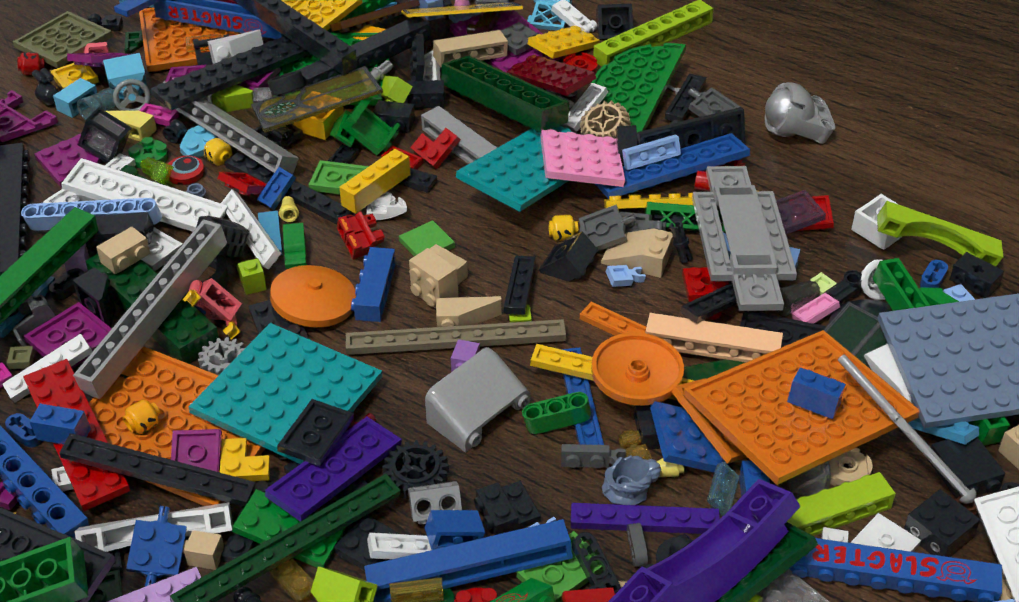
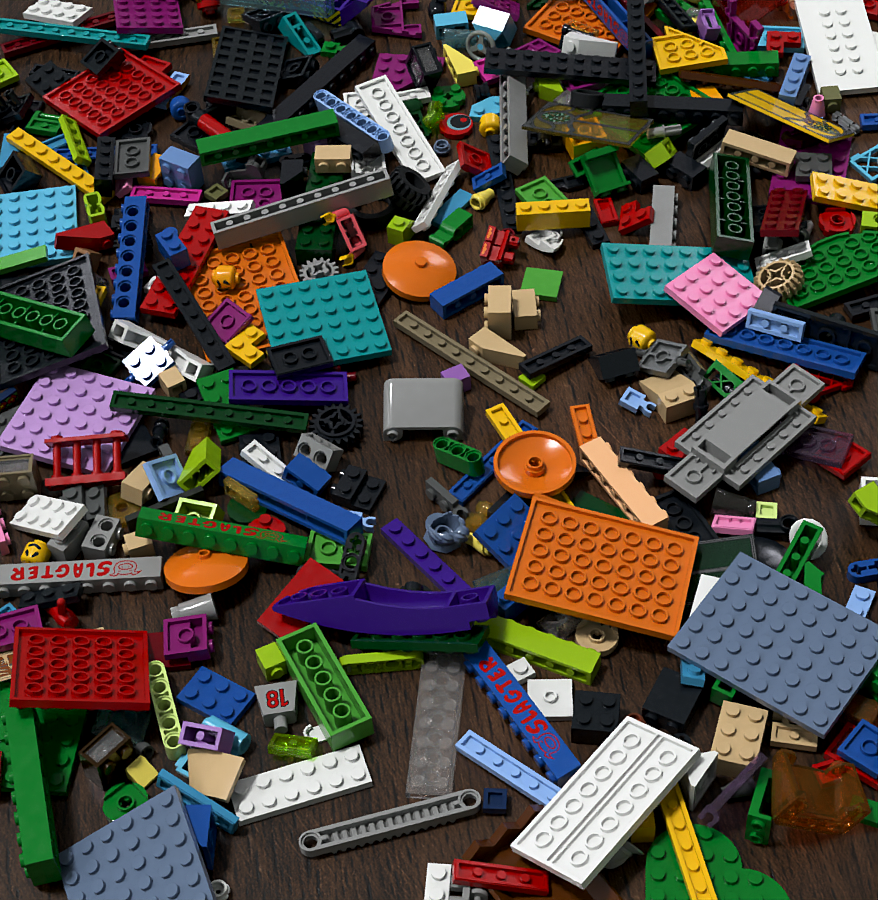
camera: 50 degrees right, 5 degrees up
(637, 545) = (398, 571): dark grey beam -> none
(816, 393) = (608, 564): blue brick -> none
(967, 495) = (640, 666): light grey bar -> none

